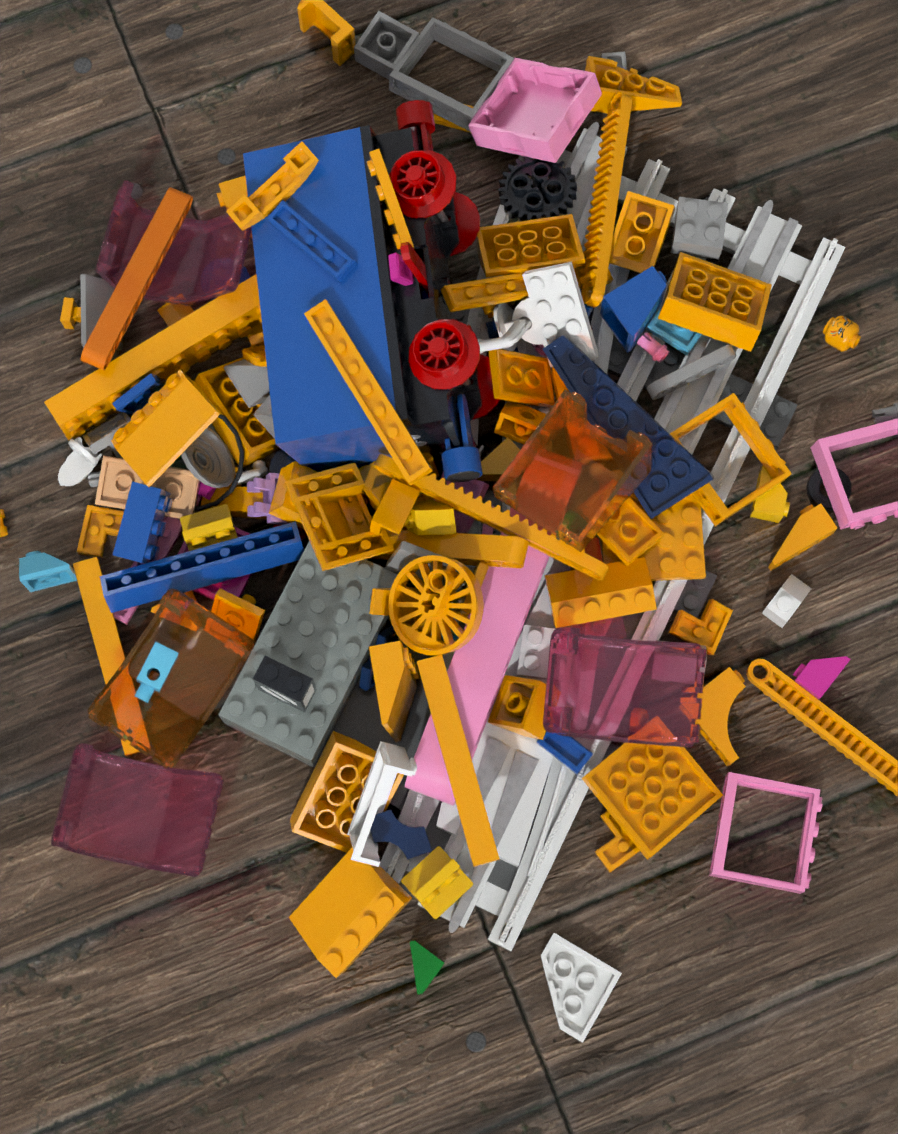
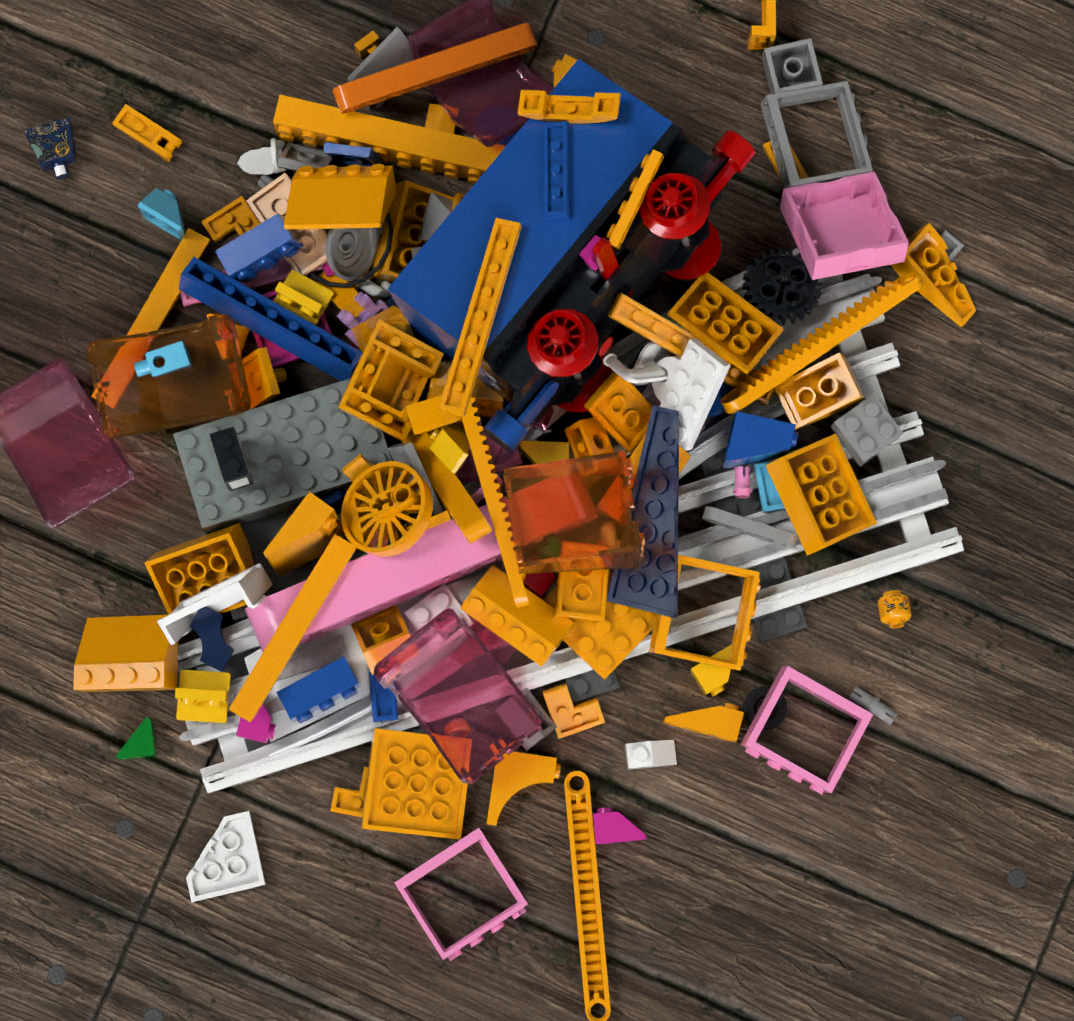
camera: 40 degrees right, 5 degrees up
(501, 868) = (260, 729): none -> dark pink slope
(519, 789) = (319, 690): none -> blue brick

